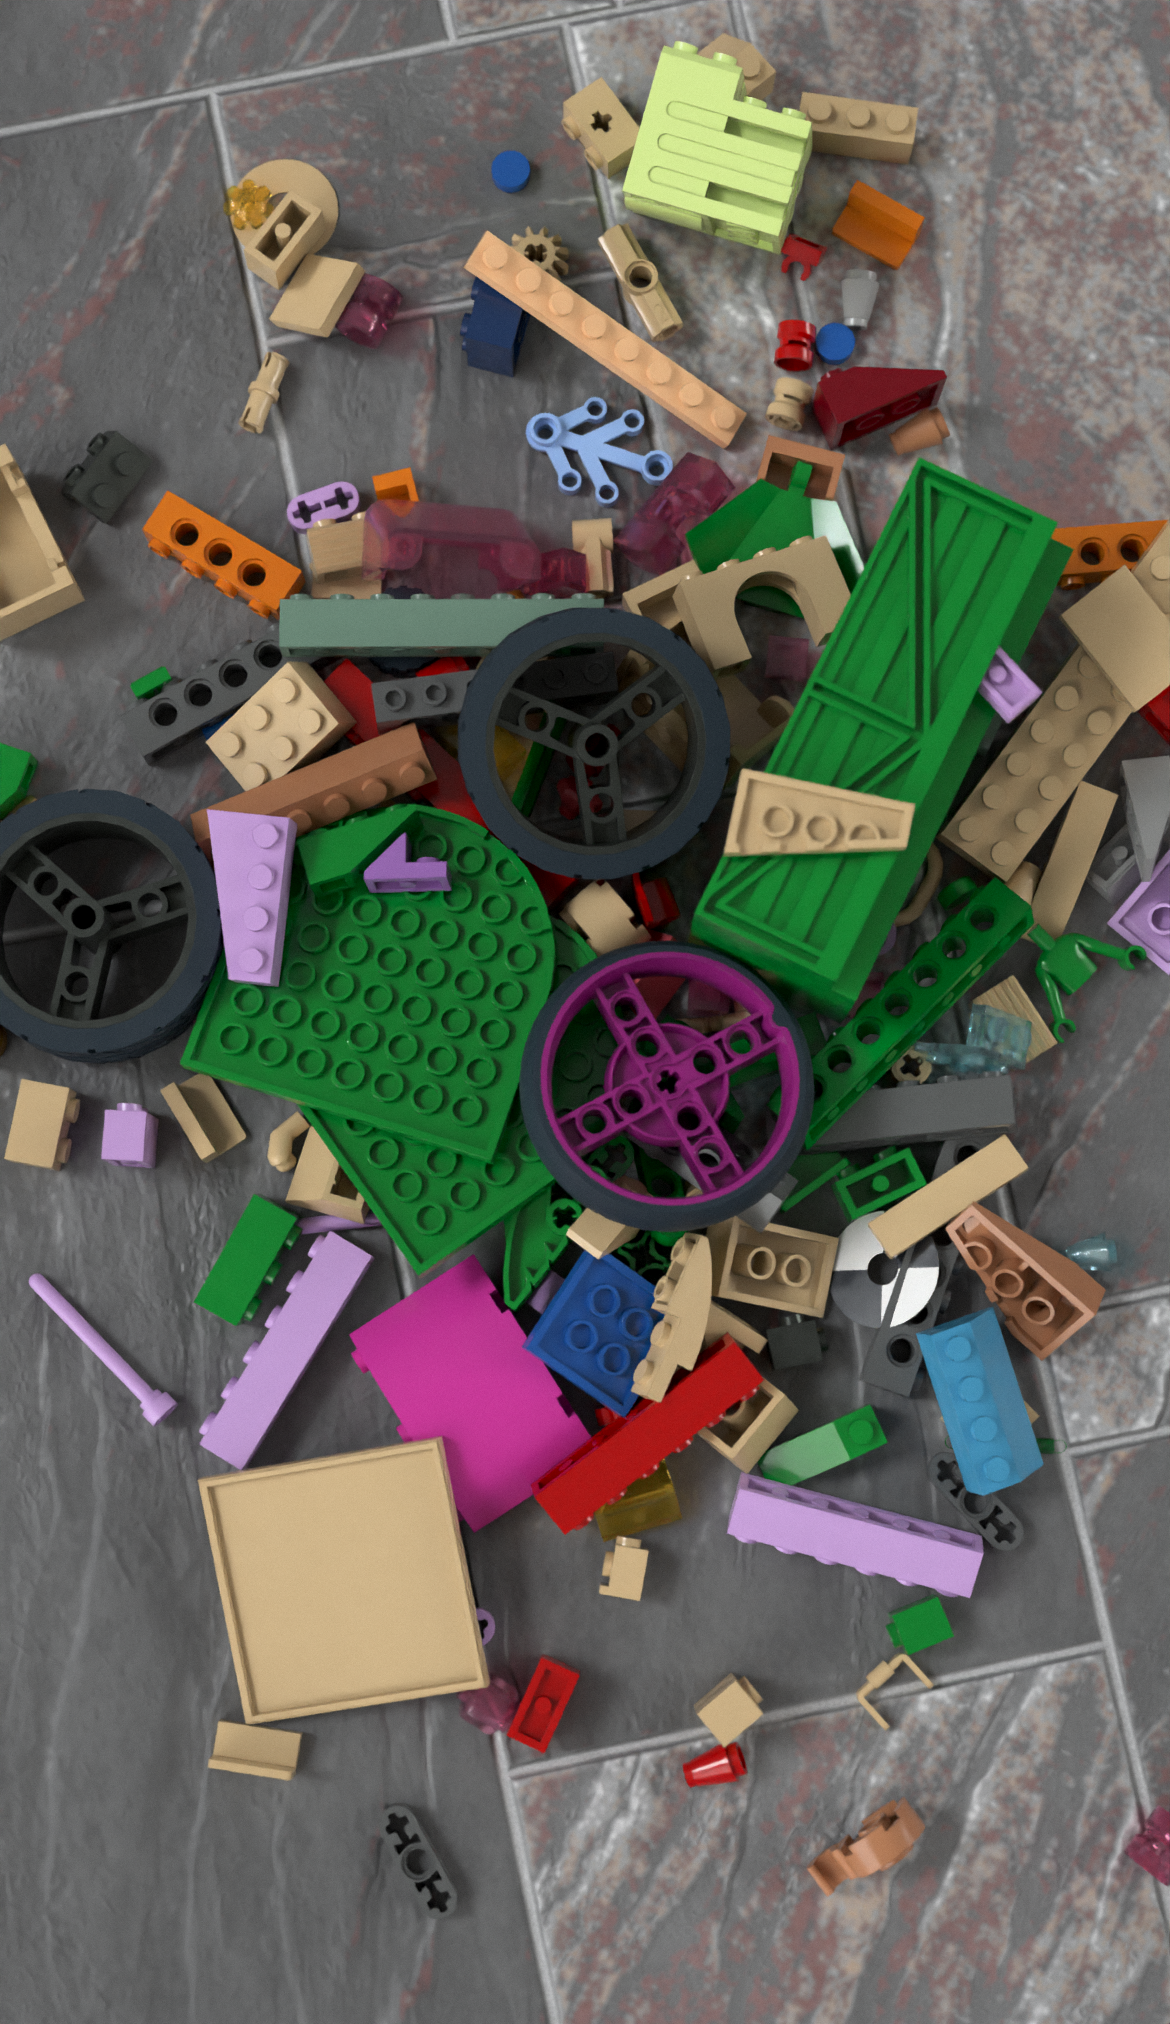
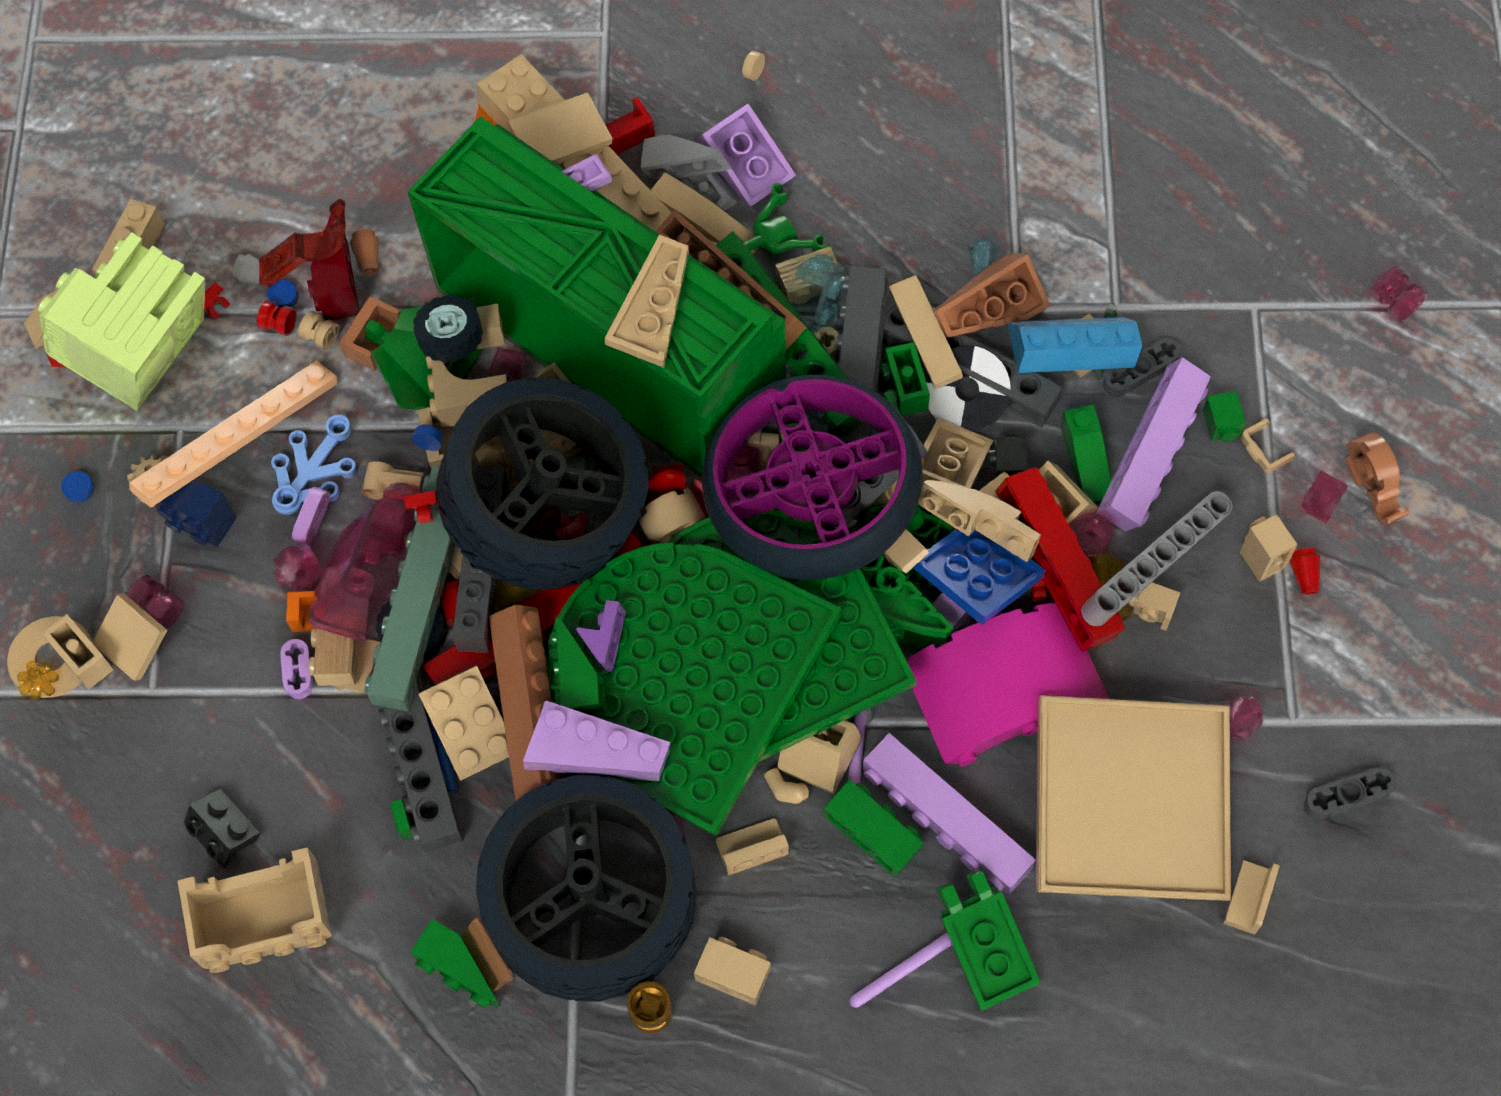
camera: 75 degrees left, 15 degrees down
(129, 1426) = (986, 942): none -> green tile
(130, 1136) = (759, 896): lavender brick -> none
(177, 517) = (316, 730): orange brick -> none
(263, 392) = (192, 694): tan pin -> none
(450, 471) = (297, 567): none -> clear pink brick
(525, 467) = (311, 515): none -> lavender beam
(539, 598) = (421, 503): none -> red tile
(543, 1703) = (1246, 674): red panel -> none
(600, 108) = (68, 413): tan brick -> none
(631, 263) = (179, 416): tan piece -> none
(650, 583) = (428, 437): none -> blue tile
(665, 1547) = (1156, 559): none -> light grey beam
(689, 489) = (362, 405): clear pink arch -> none
(697, 1470) = (1093, 534): none -> clear pink wheel
(801, 567) = (448, 328): none -> black wheel
(825, 1776) = (1323, 497): none -> clear pink brick
(878, 225) = (204, 247): orange panel -> none
(879, 348) = (303, 248): none -> clear red piece
(946, 917) = (706, 252): none -> nougat brick

